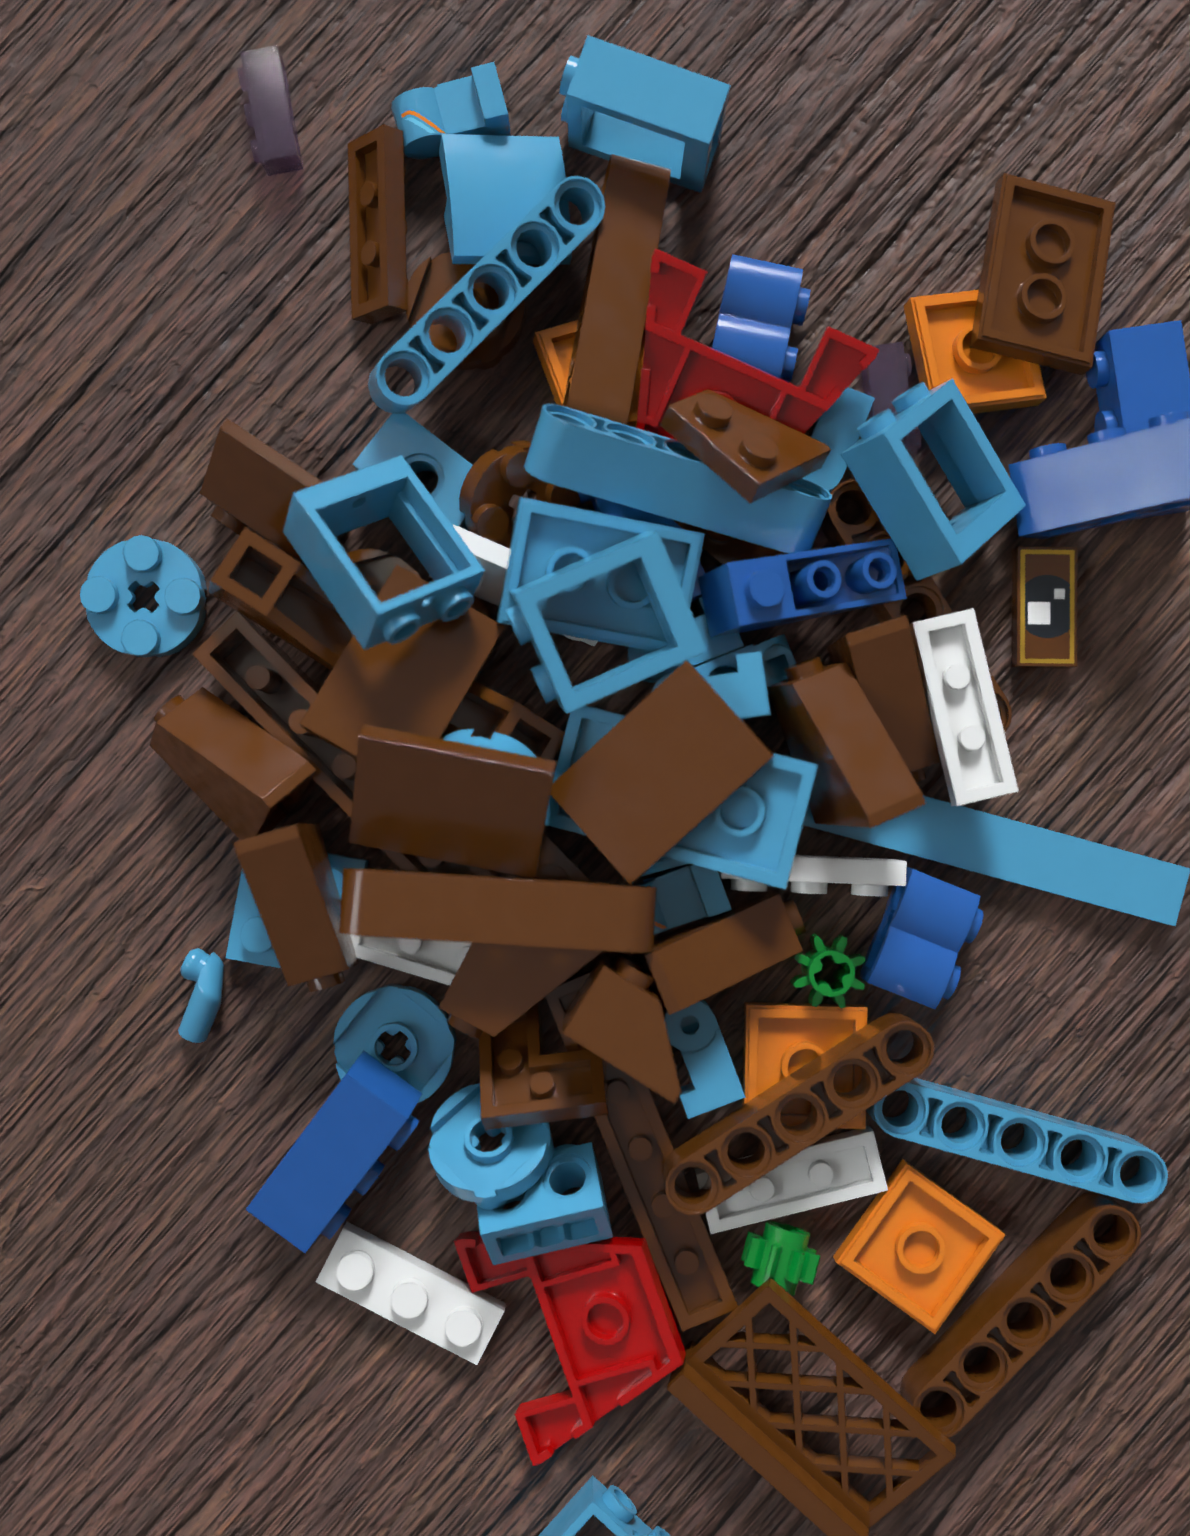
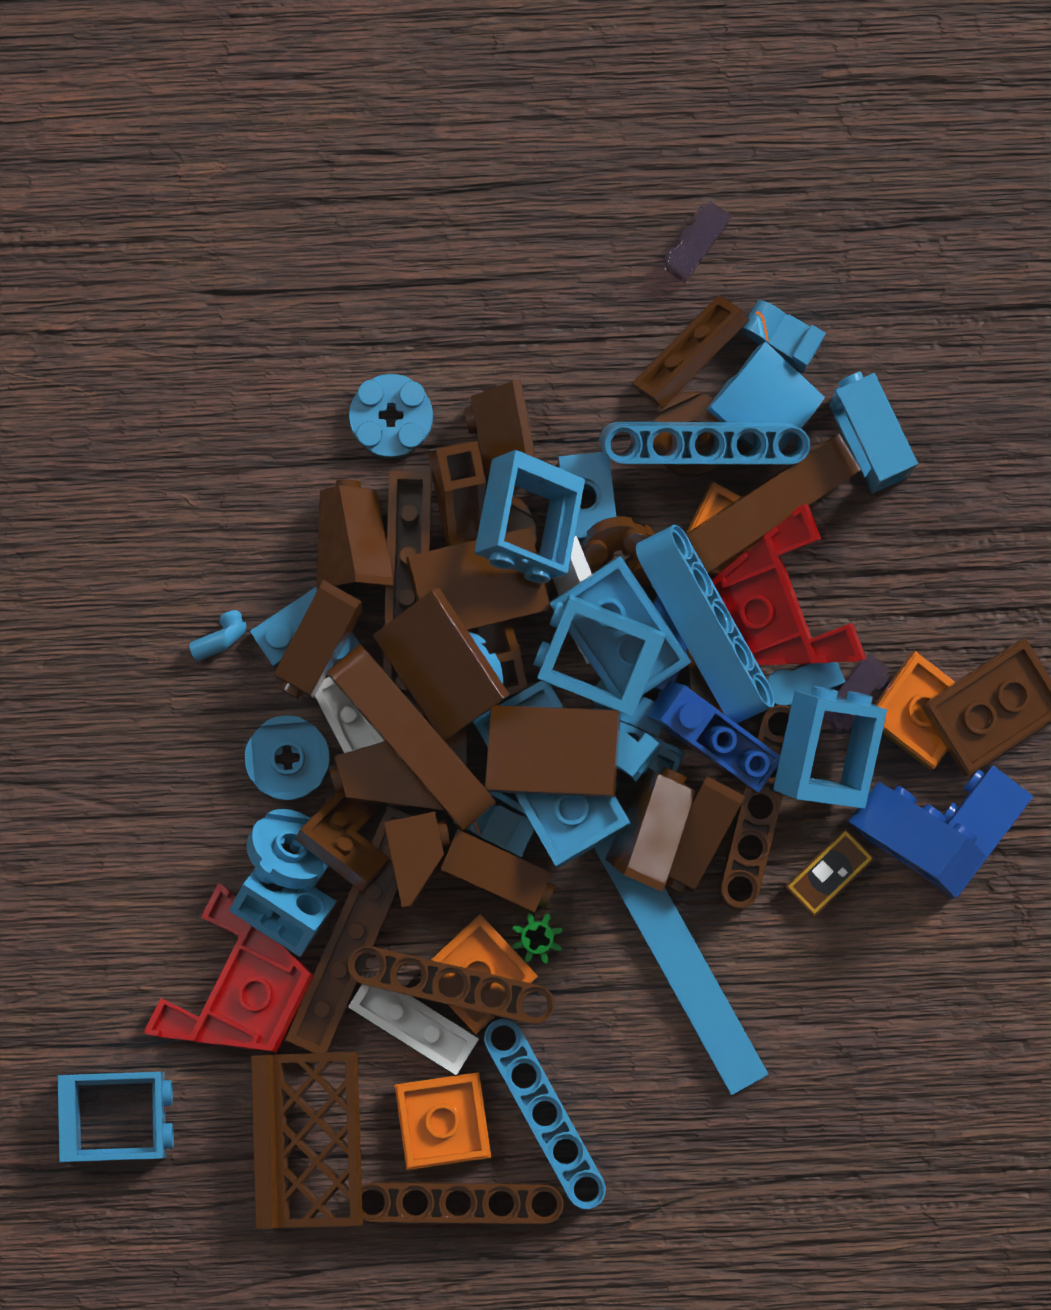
camera: 40 degrees right, 5 degrees down
(337, 1154) = (209, 779): blue brick -> none
(411, 1293) = (170, 888): white plate -> none
(706, 1057) = (441, 902): dark azure leg -> none
(743, 445) = (752, 639): reddish brown wing -> none
(758, 314) = (831, 584): blue brick -> none
(781, 1255) = (373, 1052): green gear -> none
(813, 873) = (580, 884): white plate -> none
(921, 939) = (600, 969): blue brick -> none
(963, 708) = (730, 871): white plate -> none

